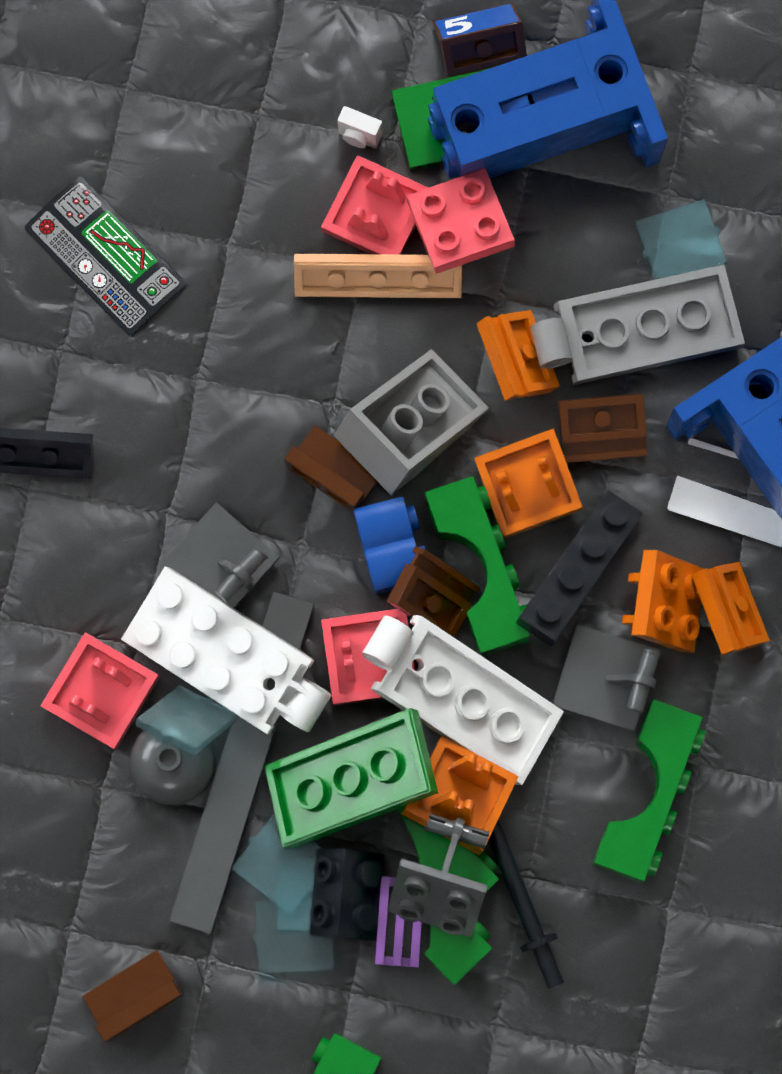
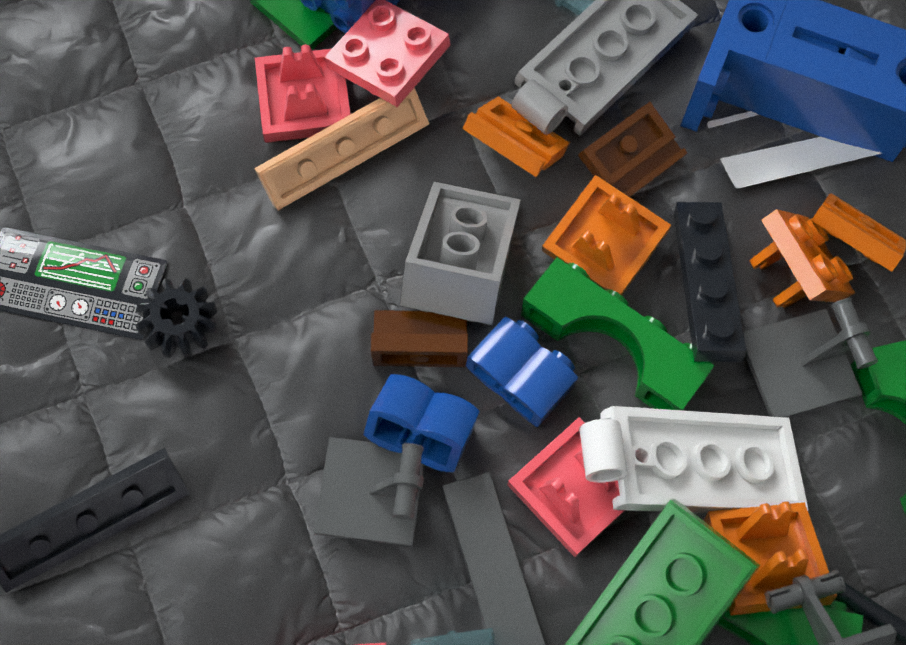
camera: 40 degrees left, 10 degrees down
(149, 346) = (158, 320): none -> black gear
(225, 654) = (438, 577): white hinge -> none
(287, 535) = (417, 415): none -> blue brick
(359, 128) = (241, 36): white plate -> none
(433, 591) = (593, 382): reddish brown plate -> none

